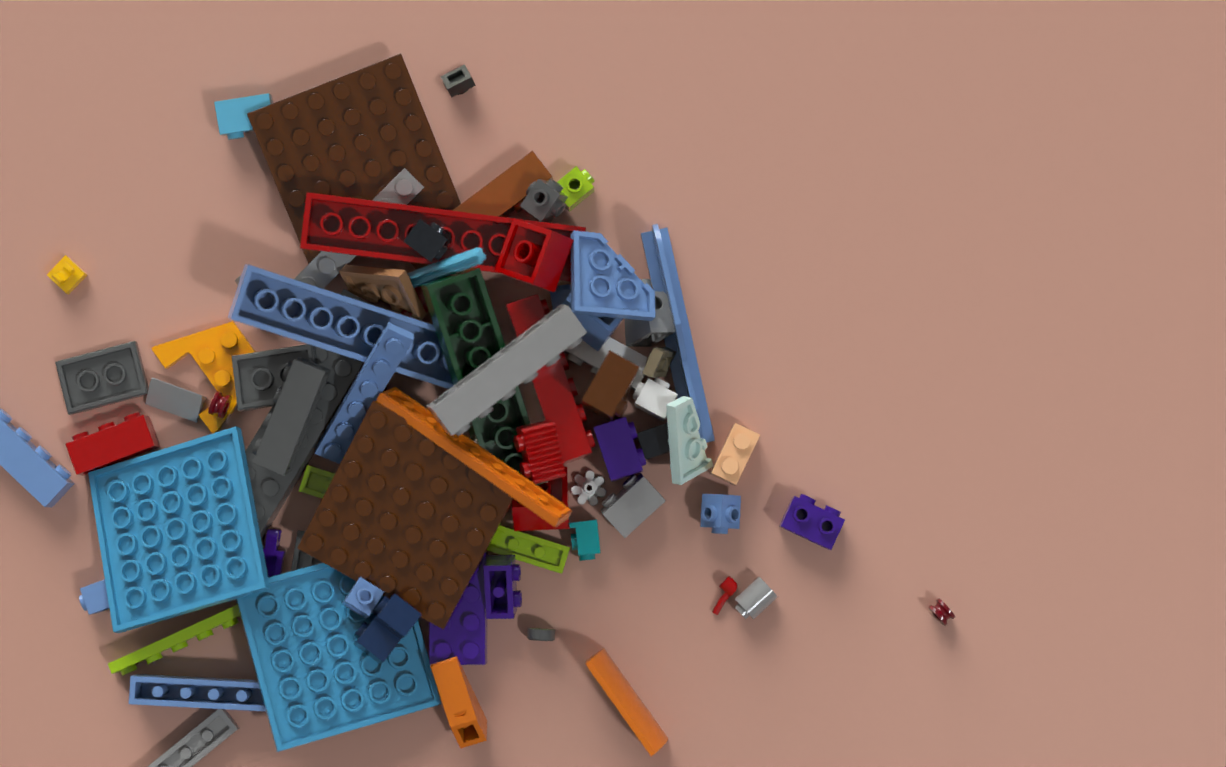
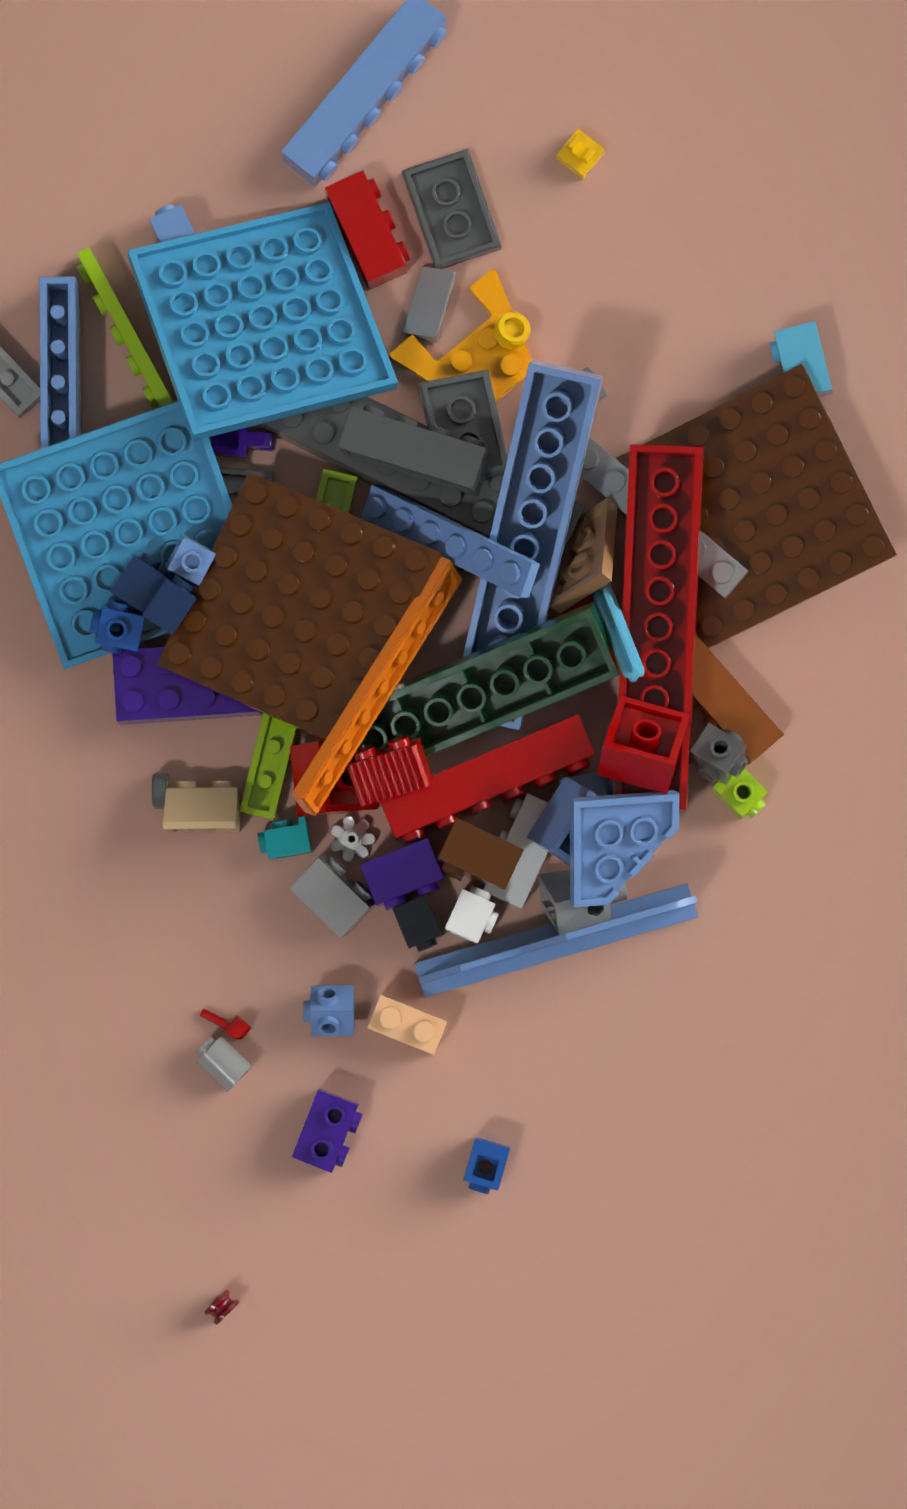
camera: 80 degrees right, 0 degrees up
(201, 336) = (512, 330): none -> yellow tile
(219, 404) = (425, 360): dark red bush -> none
(419, 651) = (115, 641): none -> blue brick
(427, 240) = (651, 606): black brick -> none
(458, 81) = (869, 632): pearl dark grey plate -> none
(460, 703) = (65, 693): orange slope -> none
(501, 586) = (217, 734): dark purple brick -> none
(506, 370) = (490, 720): light grey brick -> none
(557, 603) = (202, 809): none -> tan slope
(627, 701) = (81, 905): orange slope -> none
(659, 362) = (518, 917): dark tan plate -> none
(684, 441) = (414, 958): light aqua wing -> none
(835, 397) = (491, 1151): none -> blue brick

